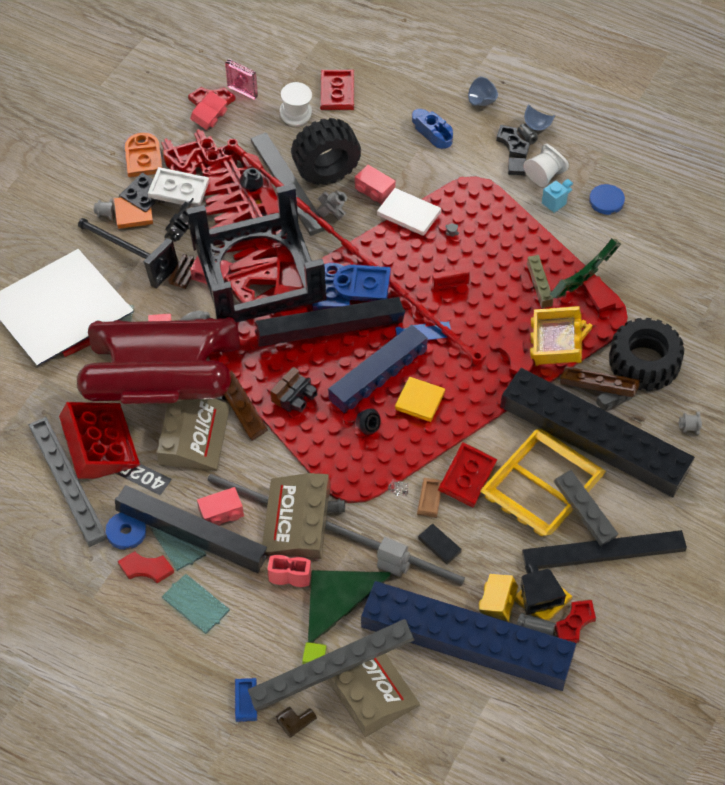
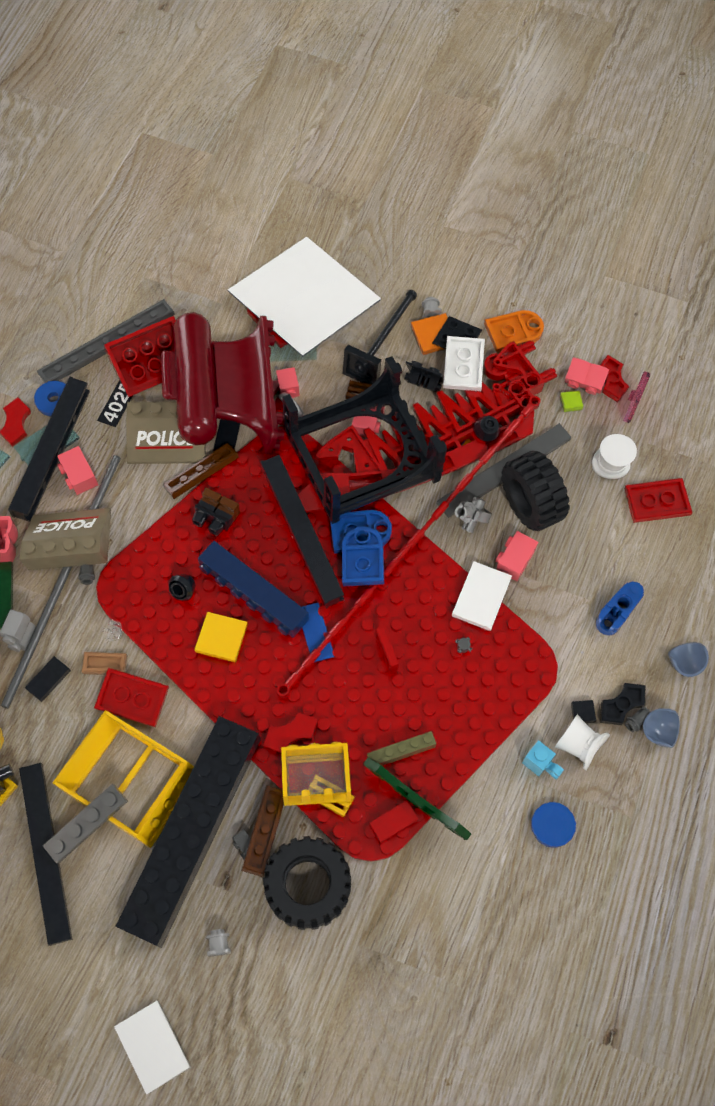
camera: 80 degrees right, 10 degrees up
(228, 127) = (571, 401): none -> lime tile

